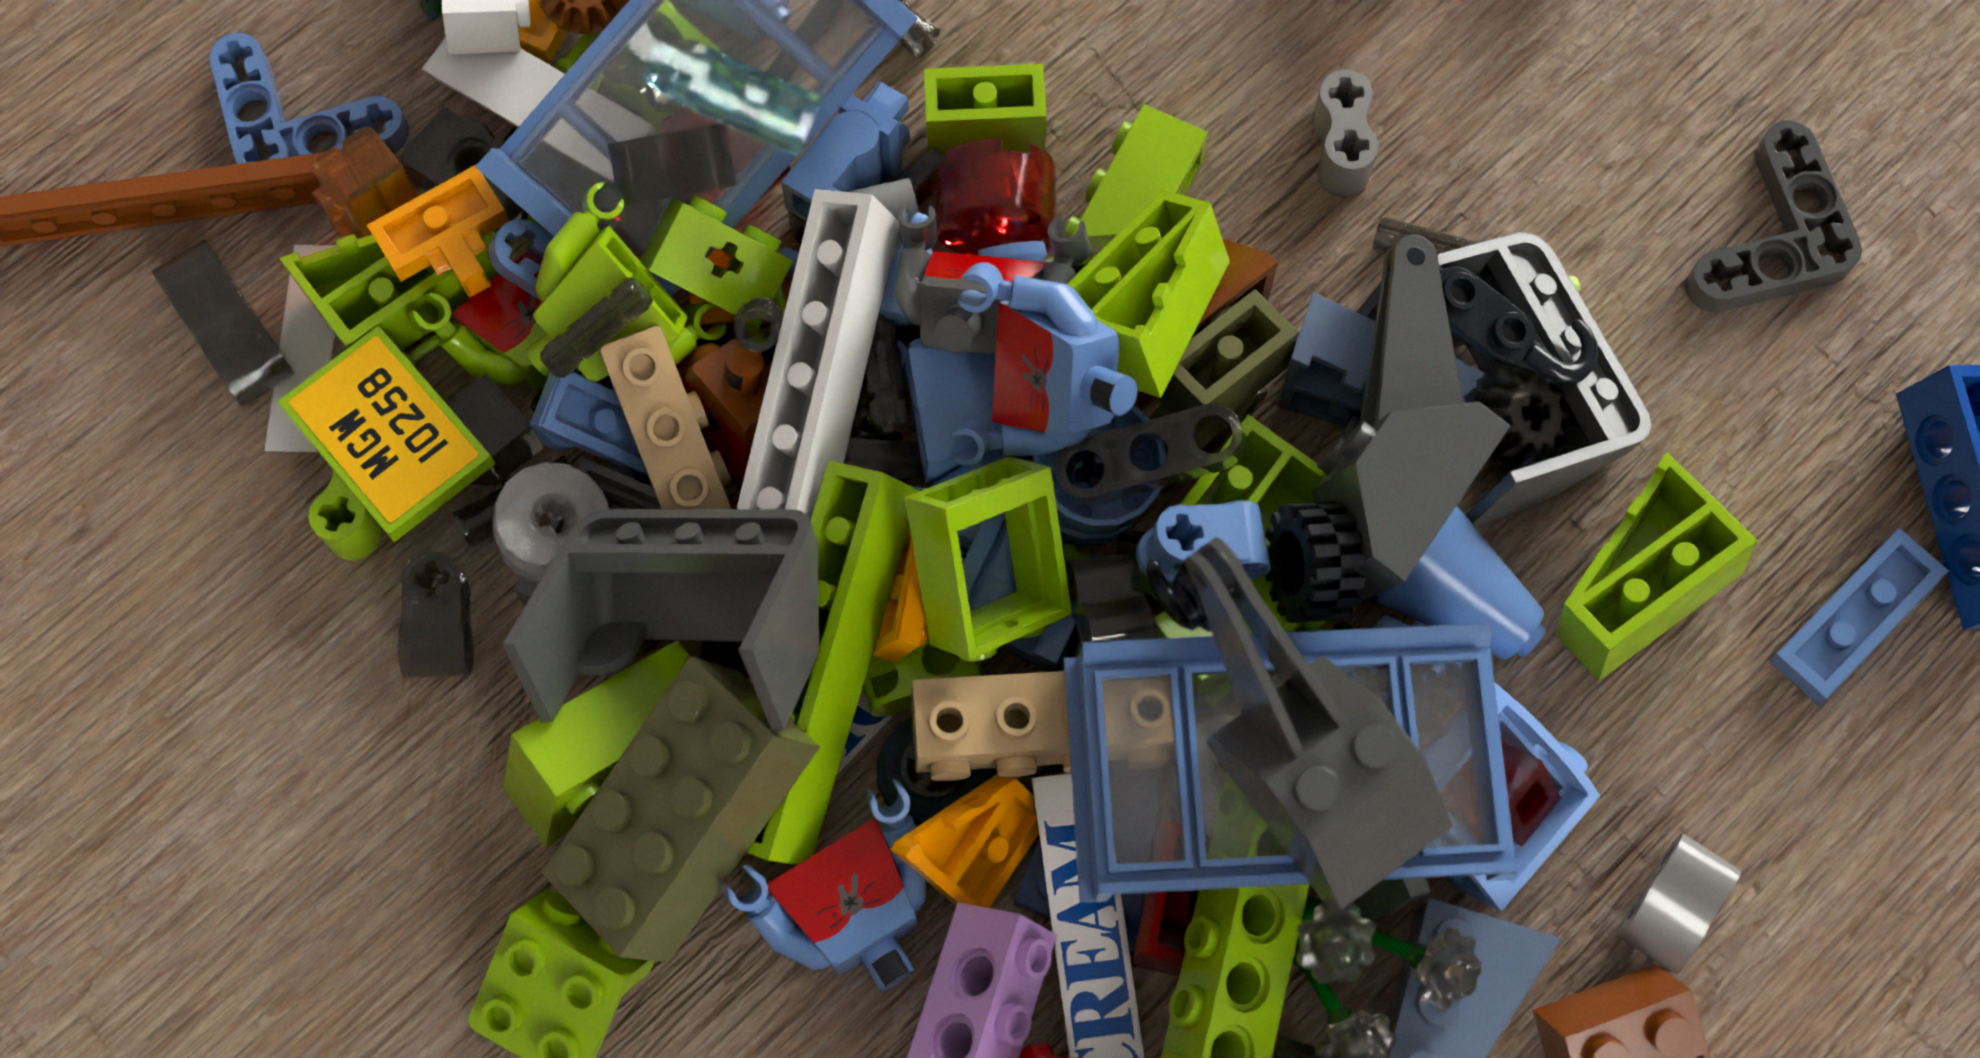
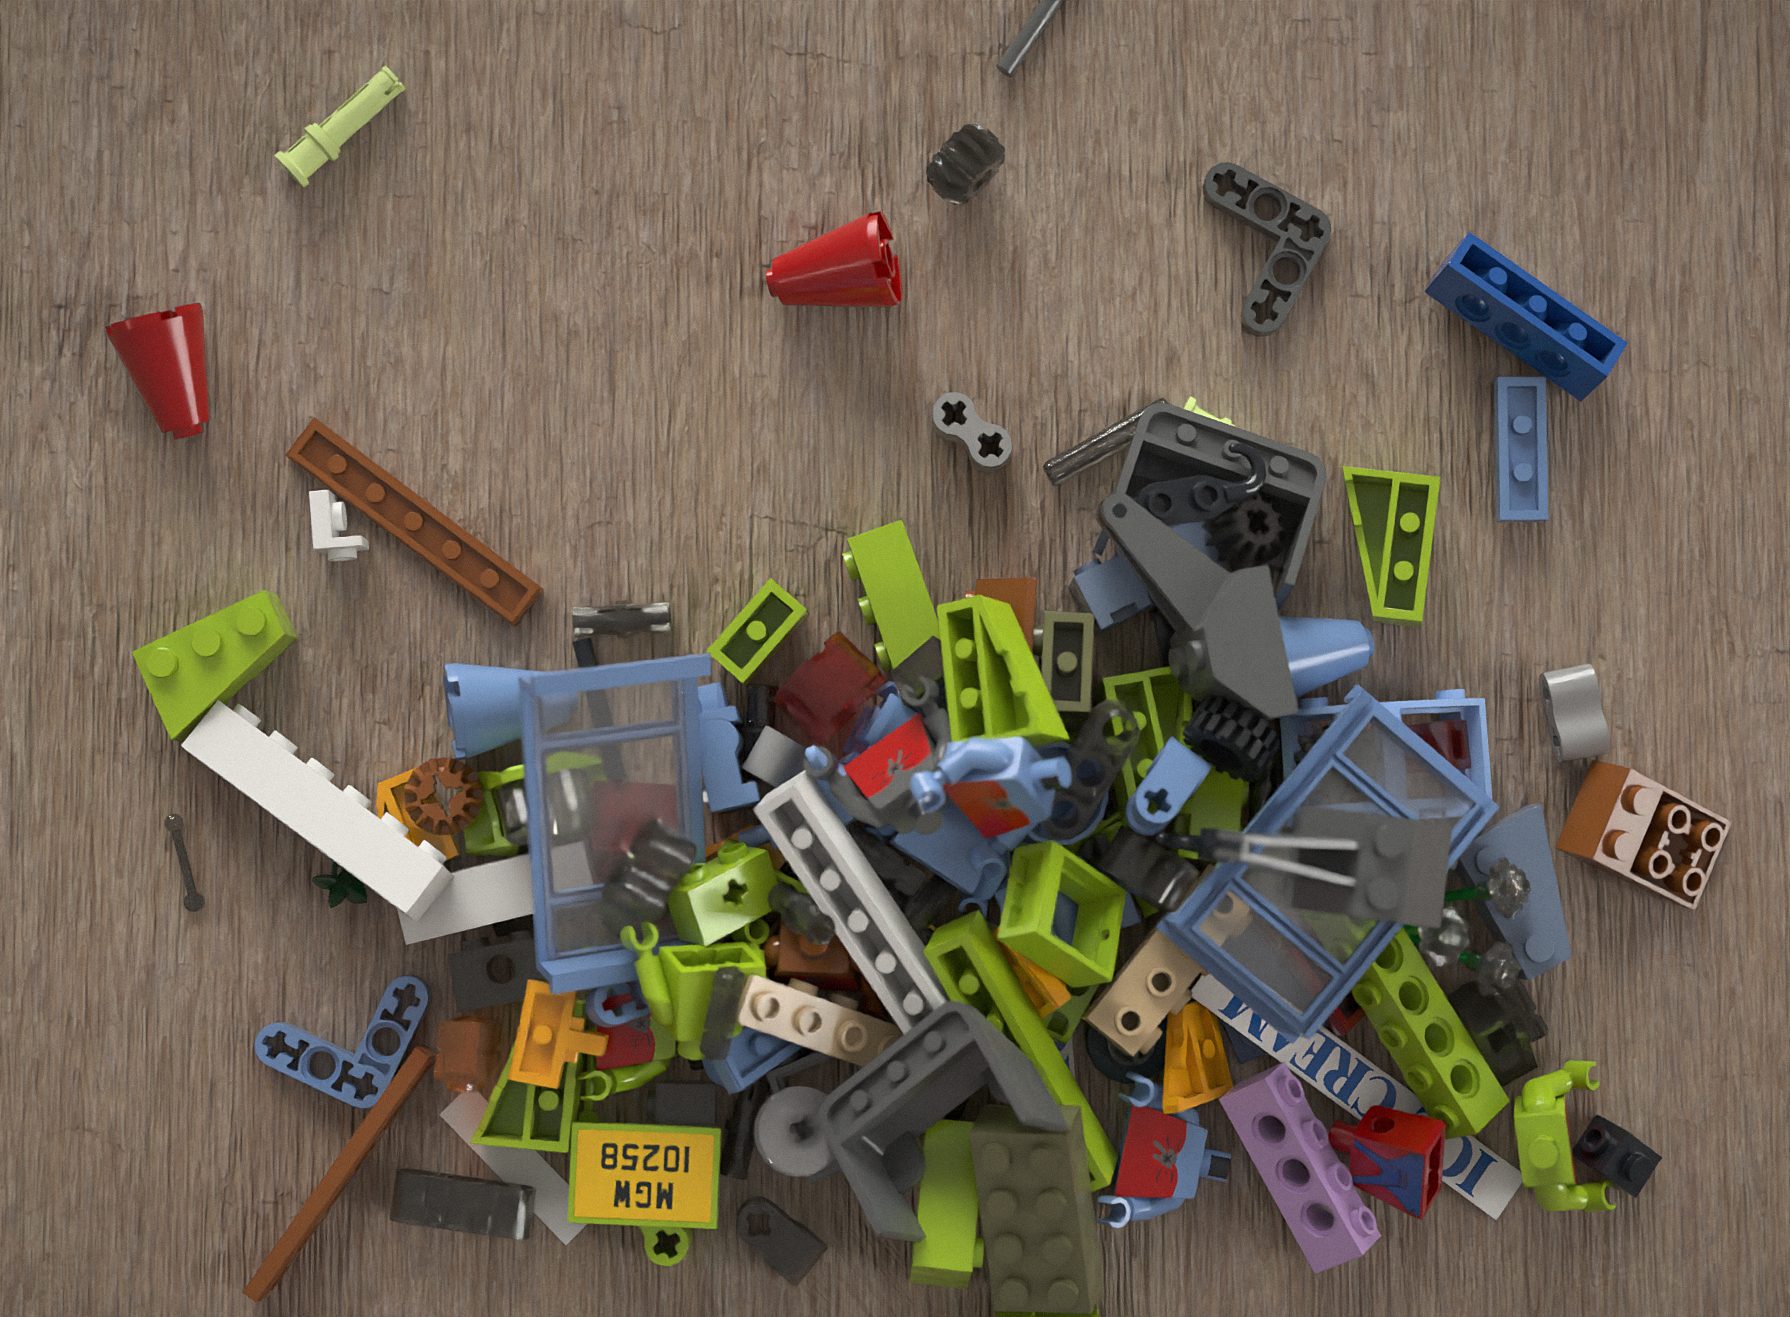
camera: 45 degrees left, 15 degrees up
(734, 94) = (648, 799): clear light blue hinge -> none

